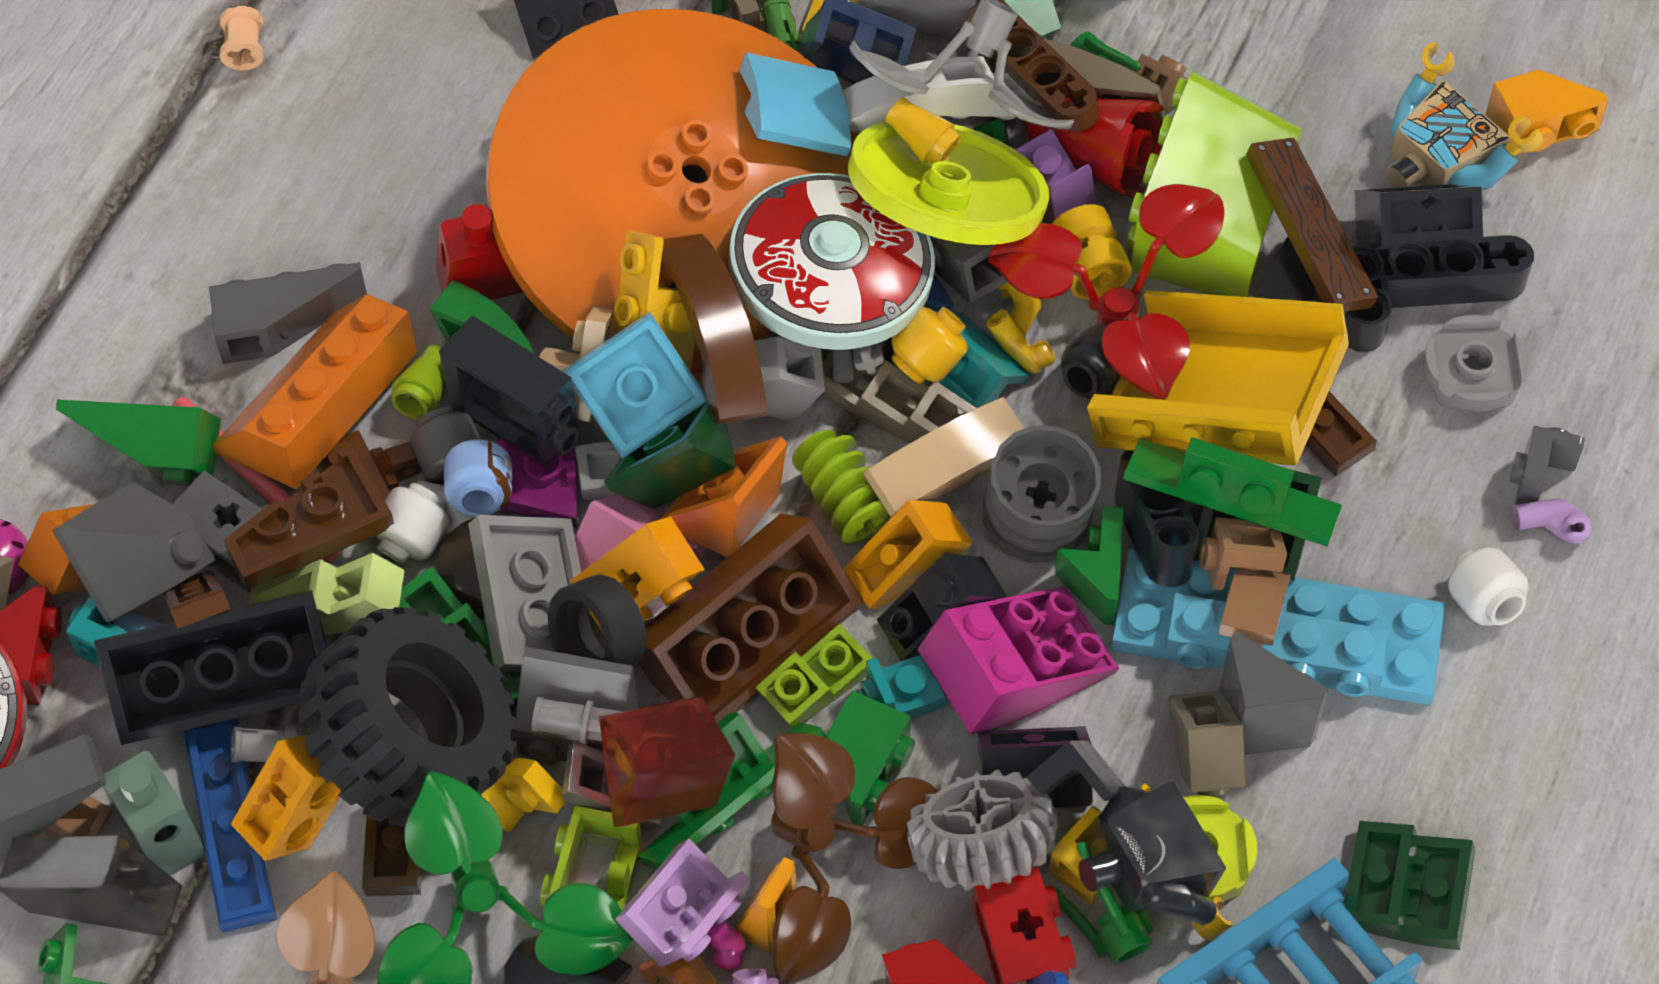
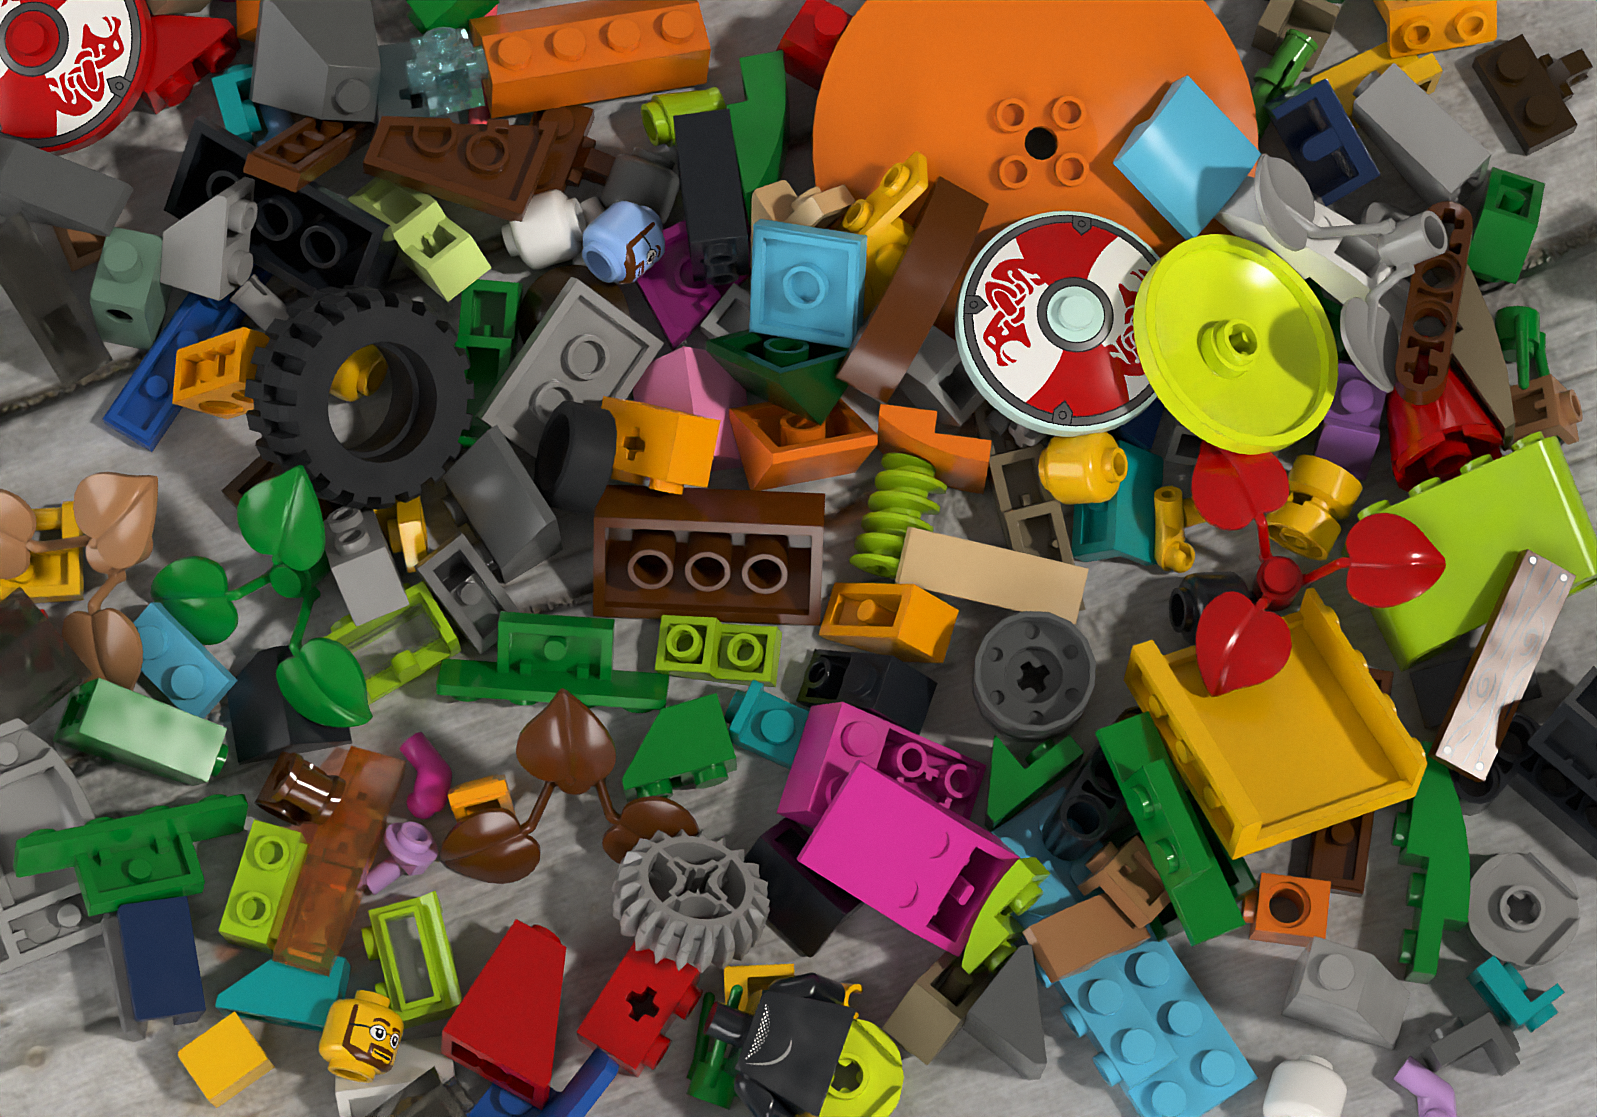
camera: 45 degrees right, 15 degrees up
(183, 727) = (211, 245): none -> light grey slope
(241, 470) = (446, 71): none -> clear light blue brick
(536, 830) = (363, 564): none -> light grey brick
(568, 719) = (486, 527): light grey axle -> none
(663, 760) = (509, 610): clear red slope -> none
(681, 905) = (415, 736): lavender bracket -> none
(844, 408) = (957, 459): none -> orange slope
(924, 132) = (1263, 281): yellow cone -> none
(1070, 763) = (804, 936): black panel -> none
(1096, 663) = (907, 857): none -> dark pink slope
(1198, 657) = (995, 928): none -> lime slope
(1360, 474) = (1307, 894): none -> orange brick
(1420, 394) = (1435, 841): none -> green slope
(1434, 498) = (1346, 993): none -> light grey slope
(1518, 412) = (1504, 991): none -> teal bracket

